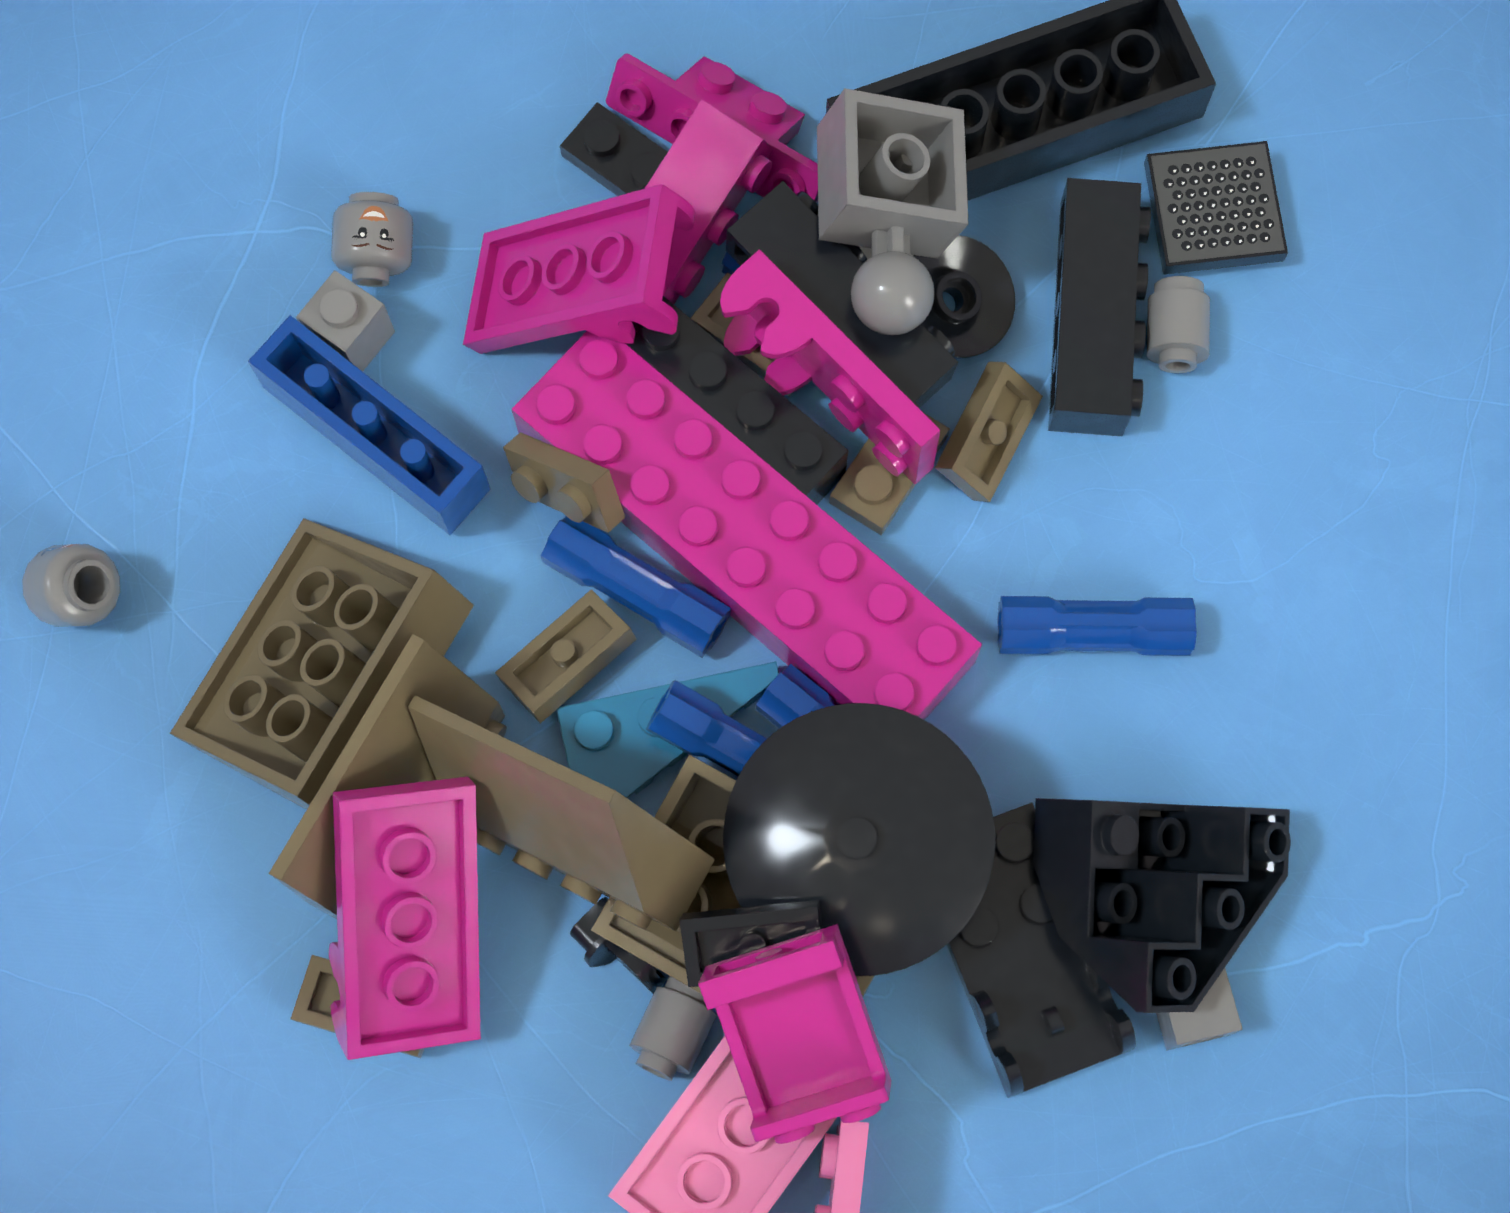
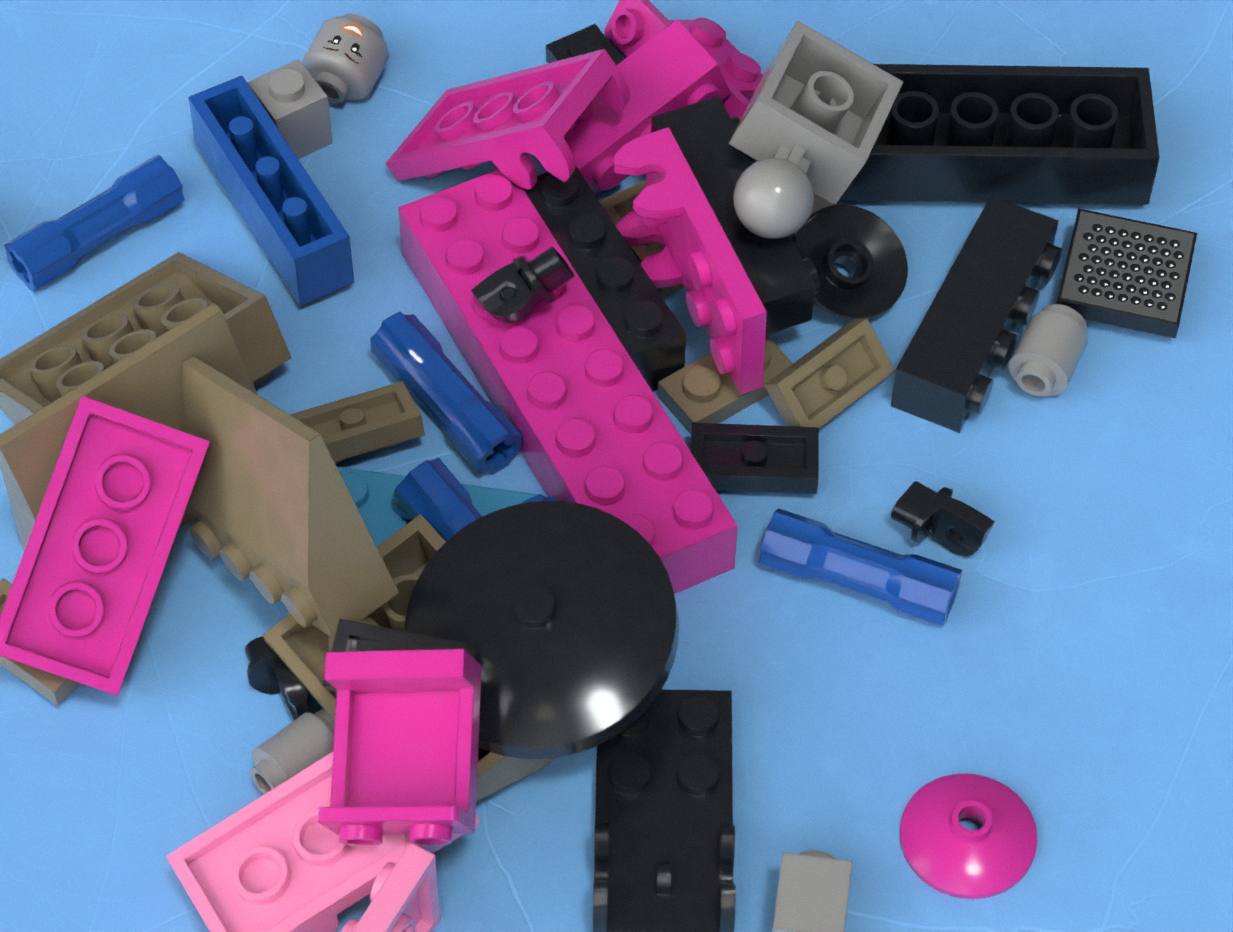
camera: 20 degrees right, 20 degrees down
(185, 559) = (59, 243): none -> blue axle
(564, 482) = (417, 282): dark tan plate -> none
(677, 472) = (521, 285): none -> black piece
(954, 543) = (758, 457): none -> black plate
(1138, 541) = (943, 518): none -> black piece
(1158, 889) = (814, 788): black brick -> none
(1330, 866) = (965, 860): none -> dark pink dish

